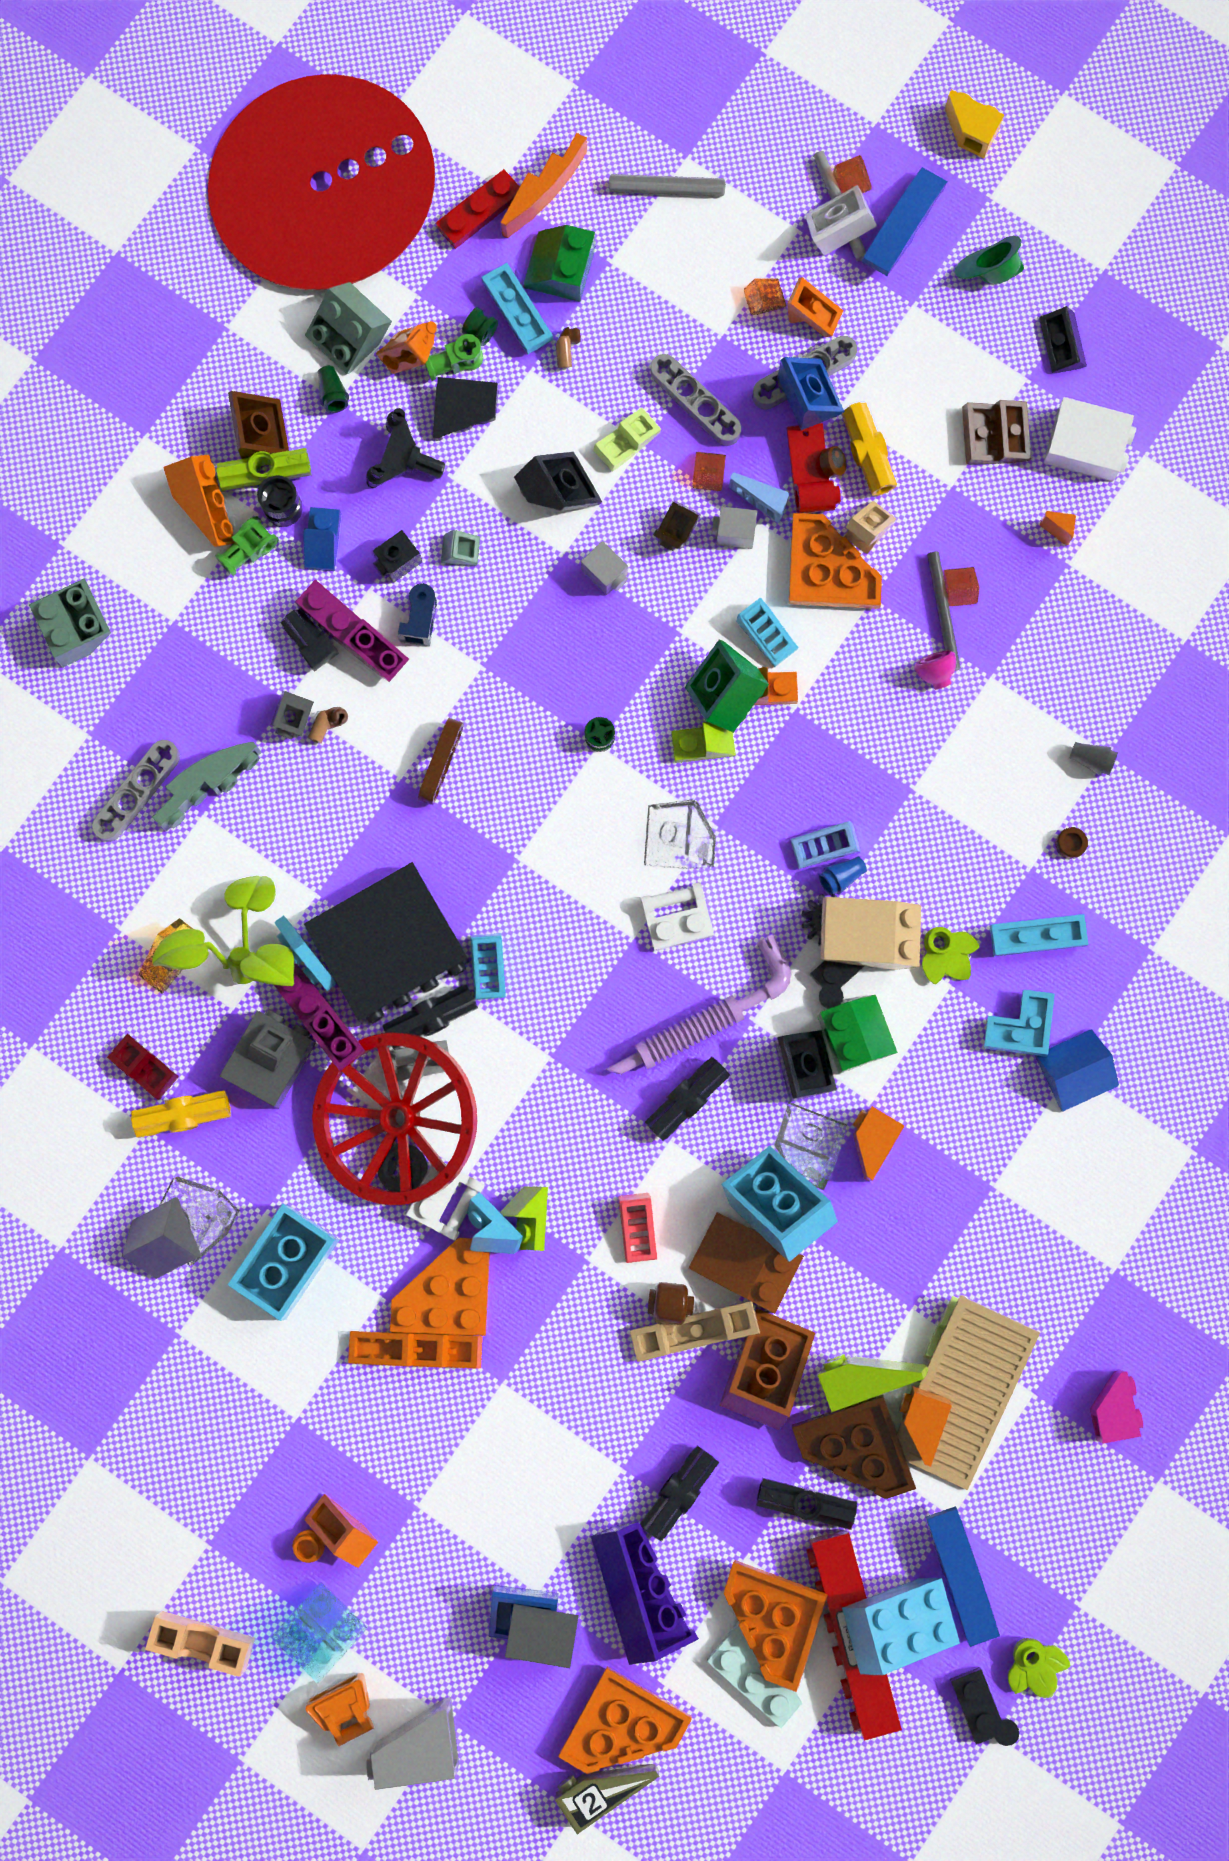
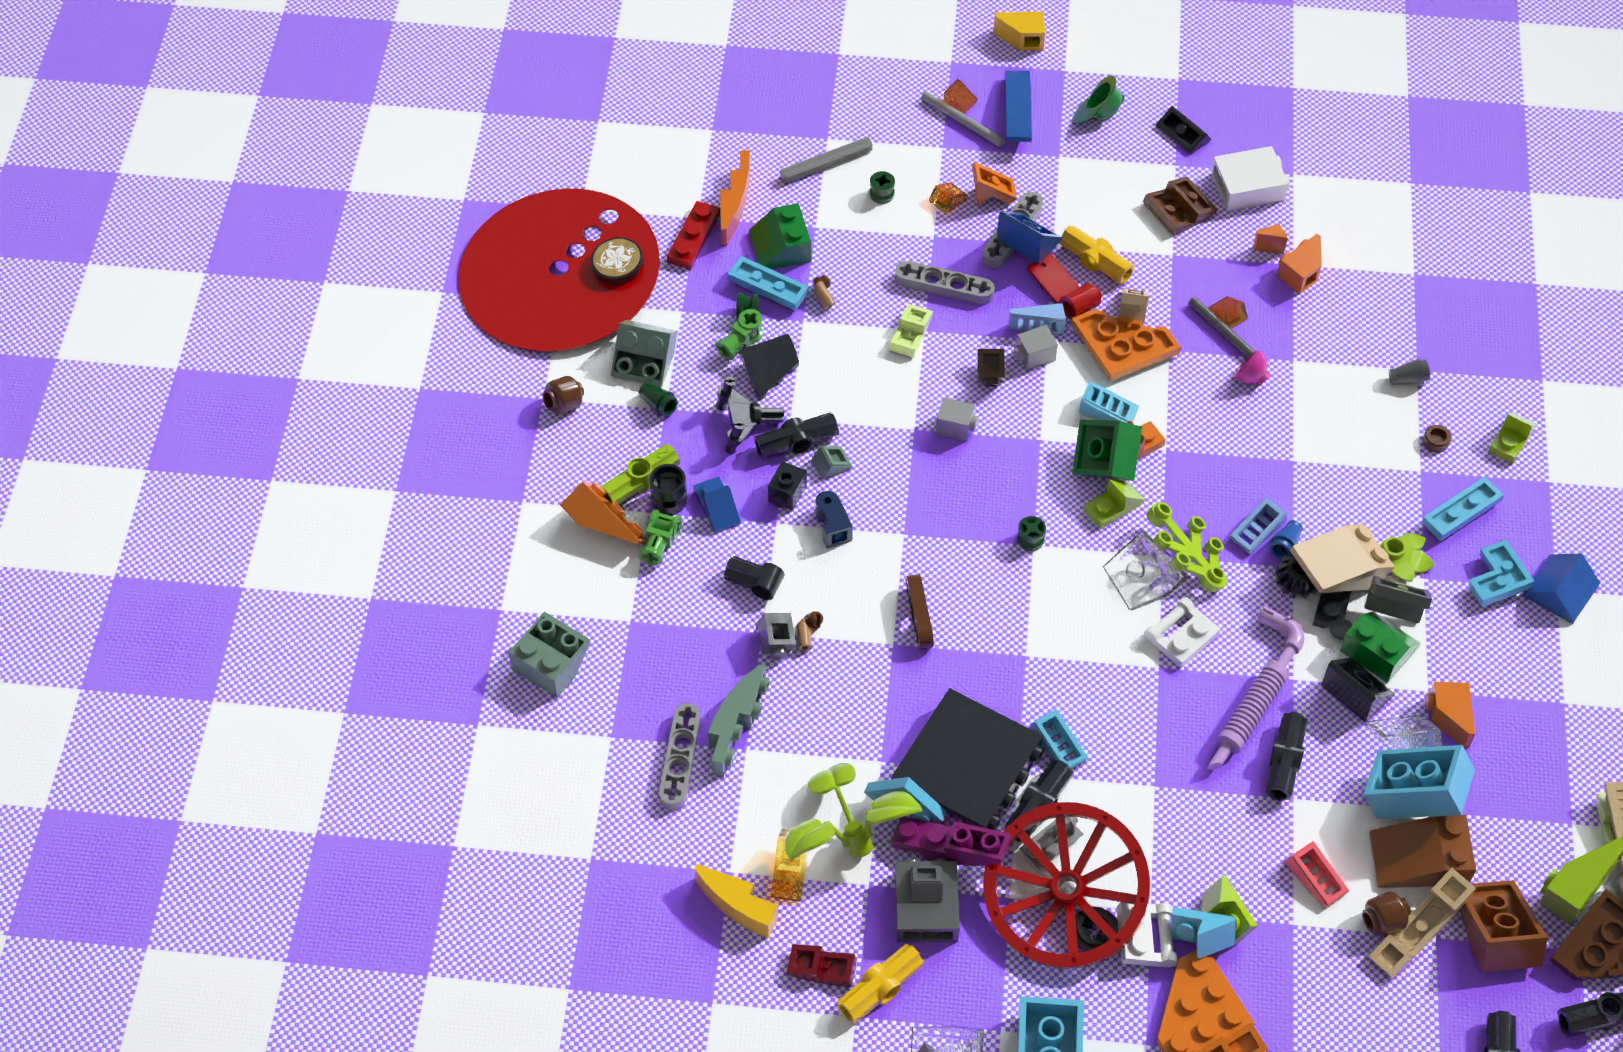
camera: 30 degrees left, 25 degrees down
(102, 965) = (737, 900): none -> yellow slope
(241, 337) = (563, 394): none -> reddish brown head
(257, 424) = (610, 447): reddish brown slope -> none
(351, 631) = (794, 557): magenta slope -> none
(377, 205) = (617, 260): none -> tile
(408, 348) = (703, 343): orange piece -> none
(440, 503) = (796, 435): none -> black piece
(557, 482) = (876, 379): black slope -> none
(701, 258) = (882, 187): none -> dark green wheel
(709, 471) = (987, 324): clear orange slope -> none
(738, 837) = (1209, 572): none -> lime plant
(833, 462) = (1076, 274): reddish brown tile -> none
(840, 220) = (972, 123): white slope -> none
(902, 999) = (1397, 599): none -> dark grey panel
(1069, 575) = (1303, 265): none -> orange slope
(1149, 882) = (1512, 437): none -> lime slope

